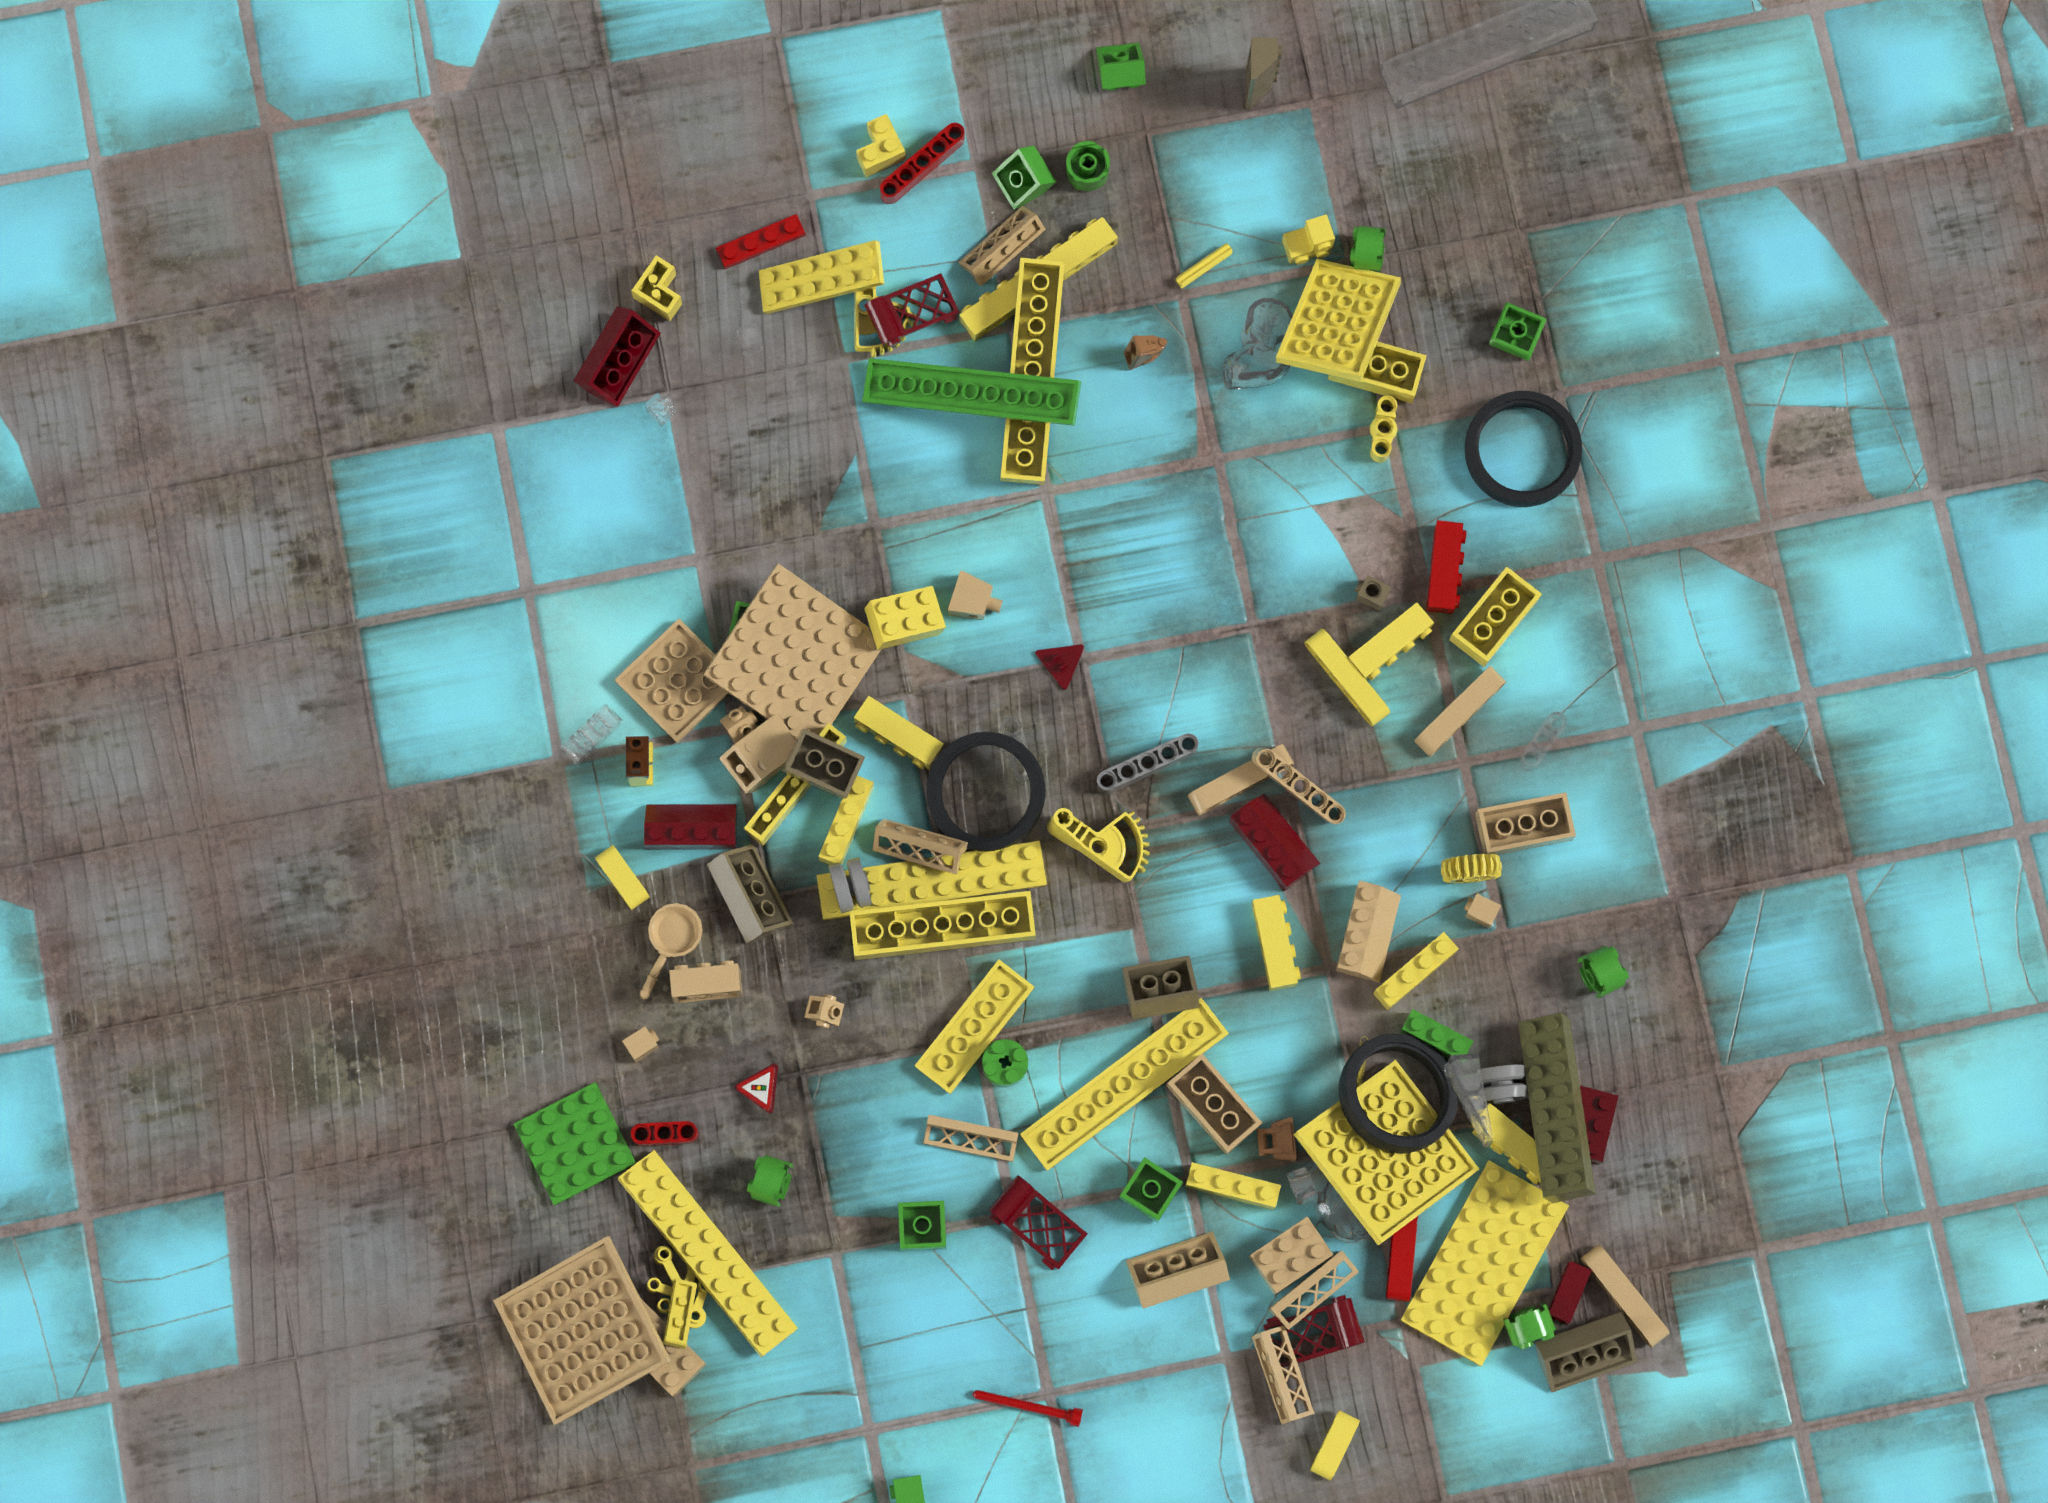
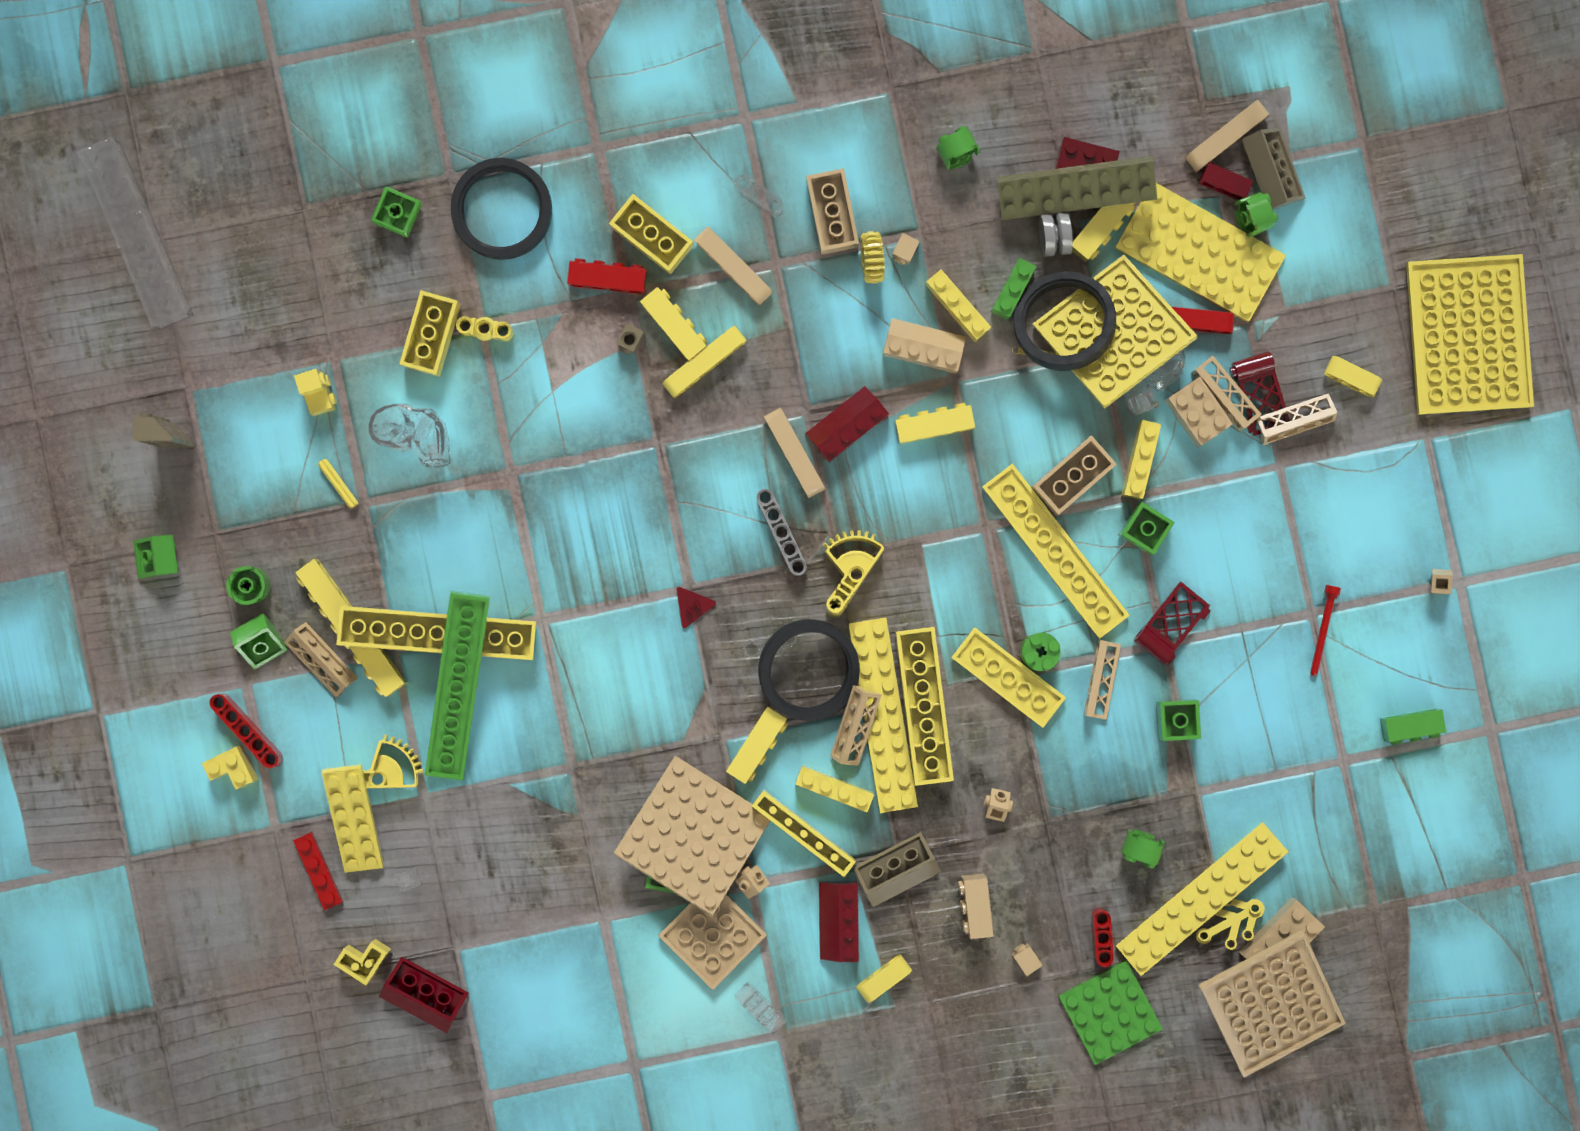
camera: 85 degrees left, 10 degrees up
(638, 757) = (785, 970): reddish brown hips -> none
(660, 408) = (471, 955): clear brick -> none
(674, 933) = (933, 933): tan piece -> none
(679, 1313) = (1256, 922): light yellow tile -> none
(759, 754) = (778, 863): tan slope -> none
(761, 1087) = (1063, 857): piece -> none
(823, 763) = (791, 810): dark tan brick -> none
(850, 885) = (894, 787): light grey wheel -> none
(889, 324) = (387, 762): dark red piece -> none
(905, 617) = (657, 741): light yellow brick -> none
(972, 598) = (637, 682): tan torso -> none
(1143, 350) = (416, 536): medium nougat piece -> none
(1160, 987) = (976, 520): dark tan brick -> none
(1178, 1270) = (1210, 506): tan slope -> none
(1282, 1139) = (1102, 418): medium nougat piece -> none
(1308, 790) = (795, 409): tan beam -> none
(1338, 320) = (389, 366): light yellow plate -> none
(1369, 248) = (323, 339): bright green brick -> none
(1468, 1086) = (1060, 261): clear wedge -> none

